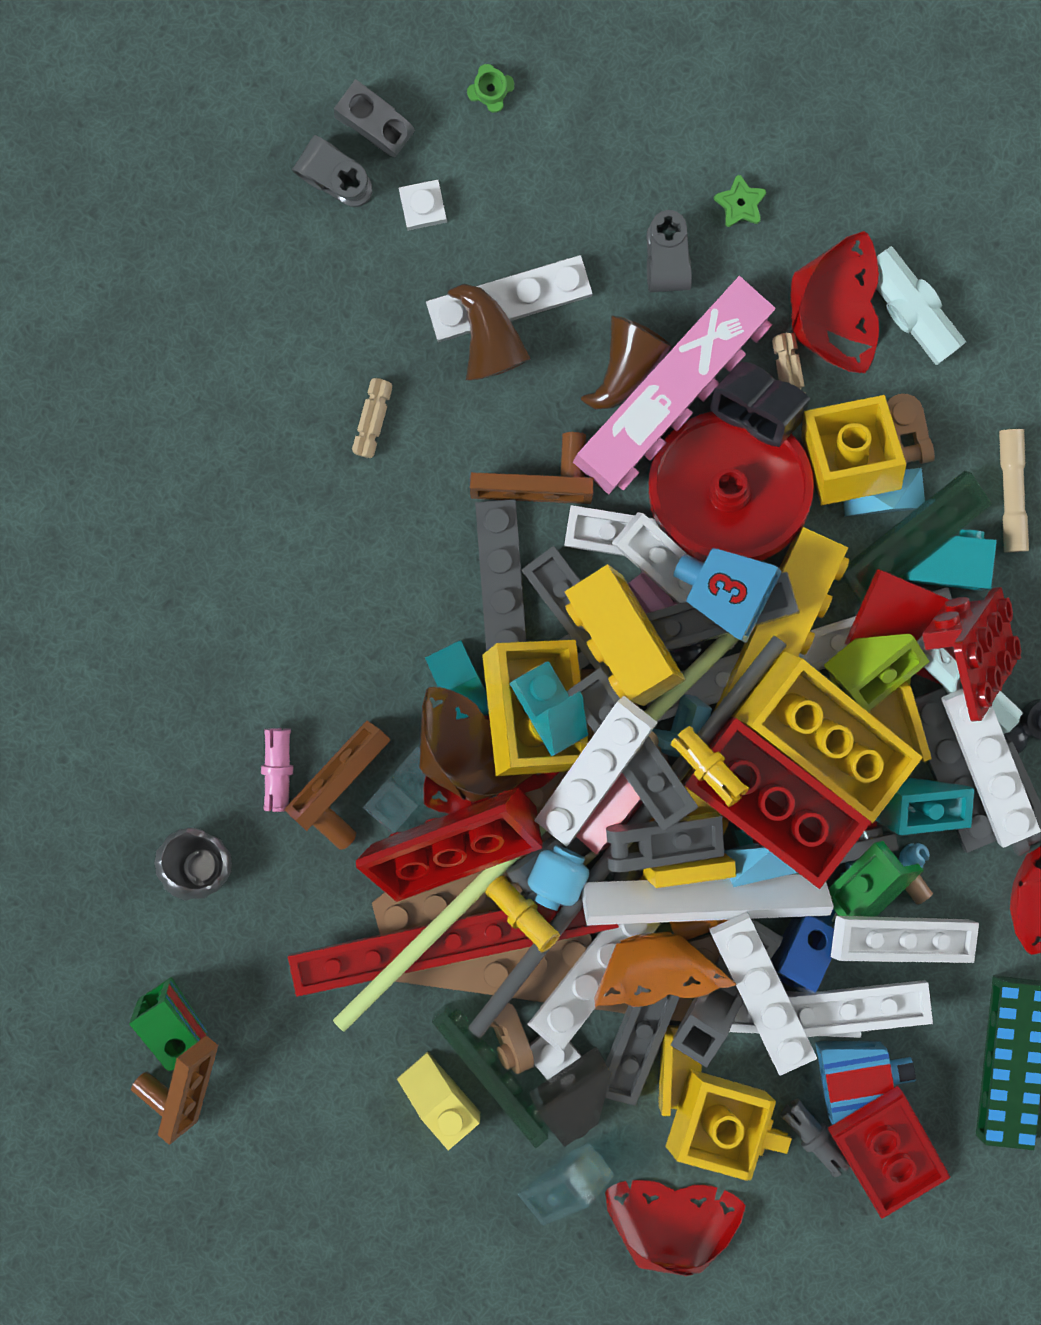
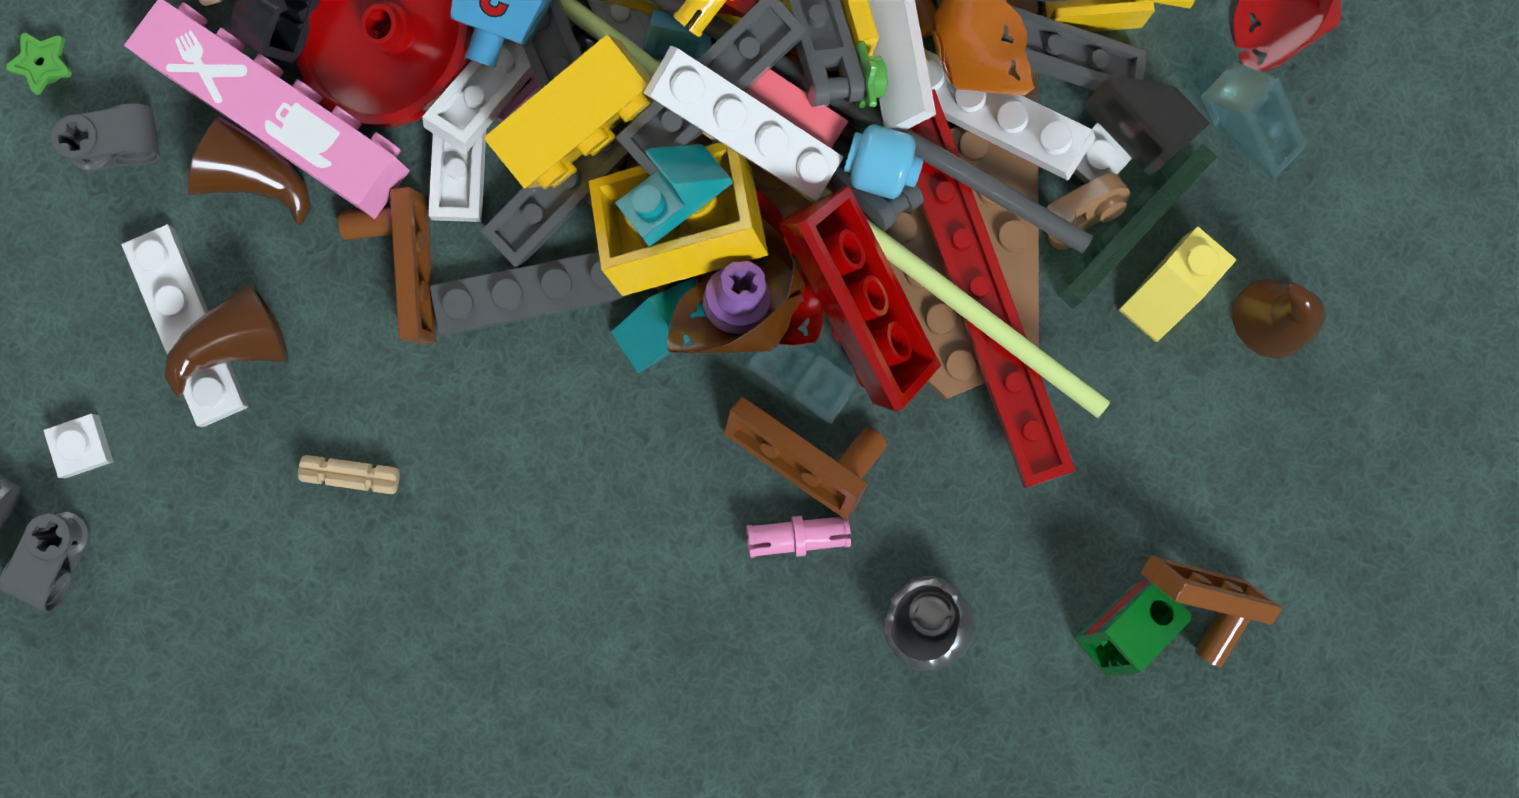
camera: 95 degrees left, 5 degrees down
(403, 1177) = (1277, 317): none -> reddish brown hat
(456, 737) = (735, 311): none -> medium lavender piece
(522, 913) = (933, 202): yellow pin -> none
(625, 880) = (874, 75): none -> bright green plate

